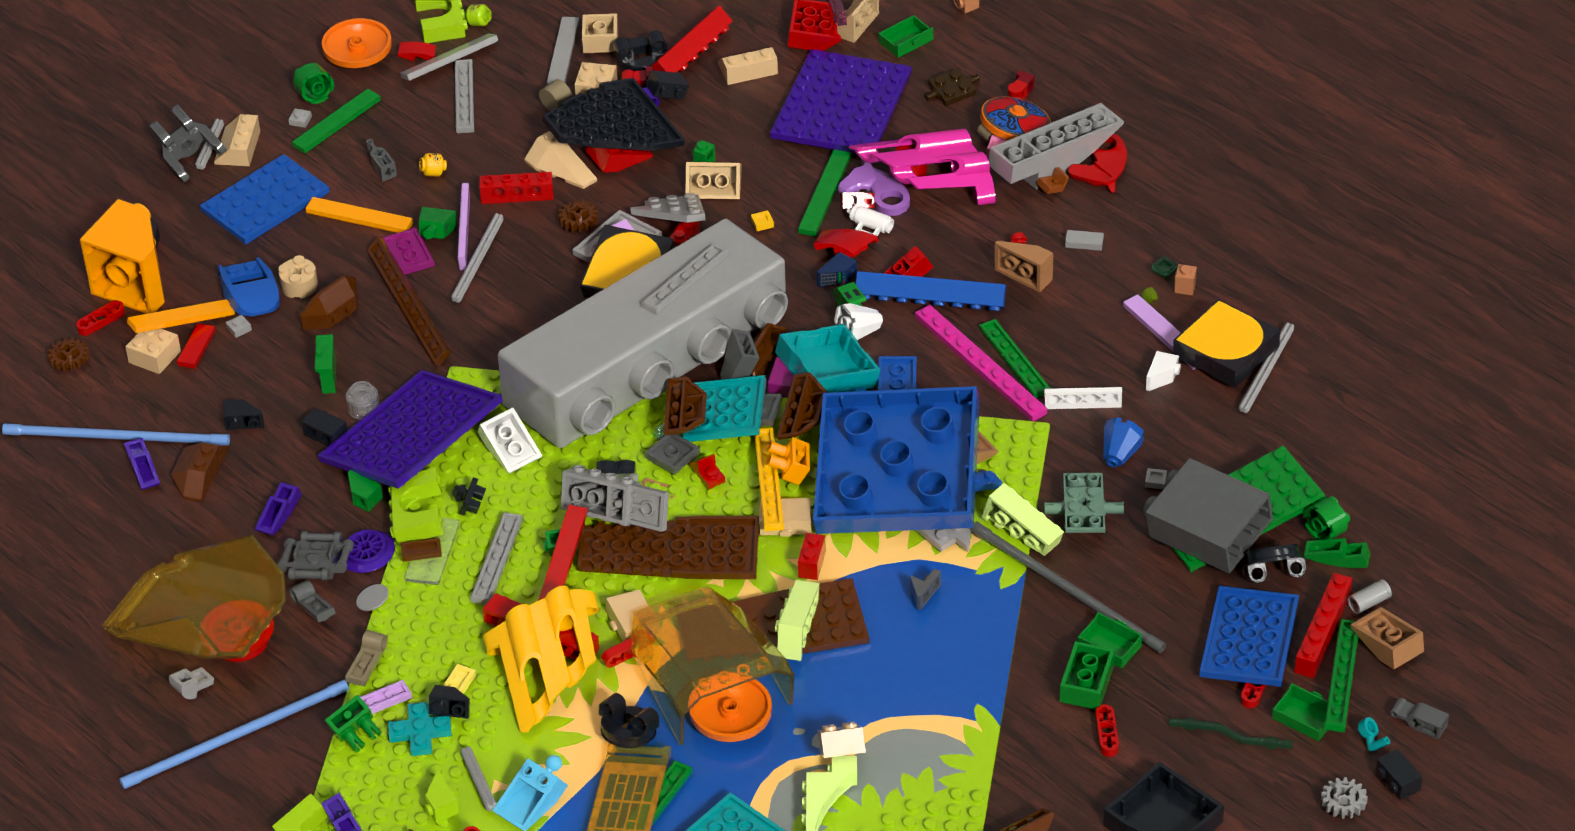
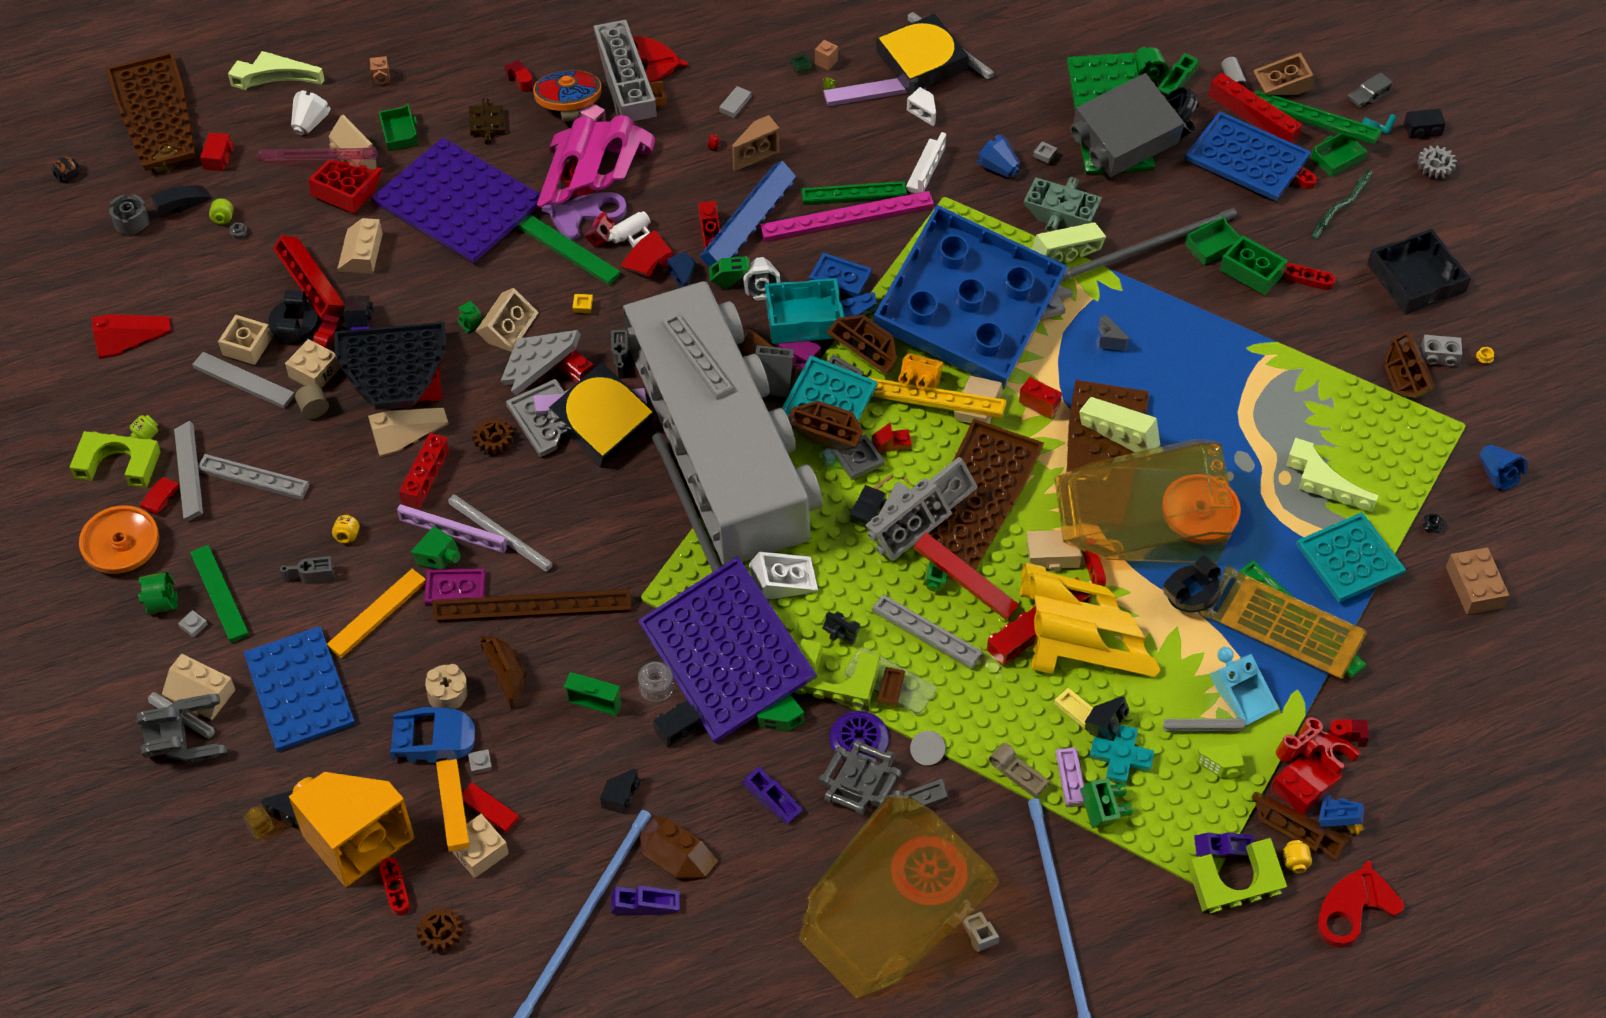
camera: 70 degrees left, 10 degrees up
(841, 740) = (1277, 441): brick -> none

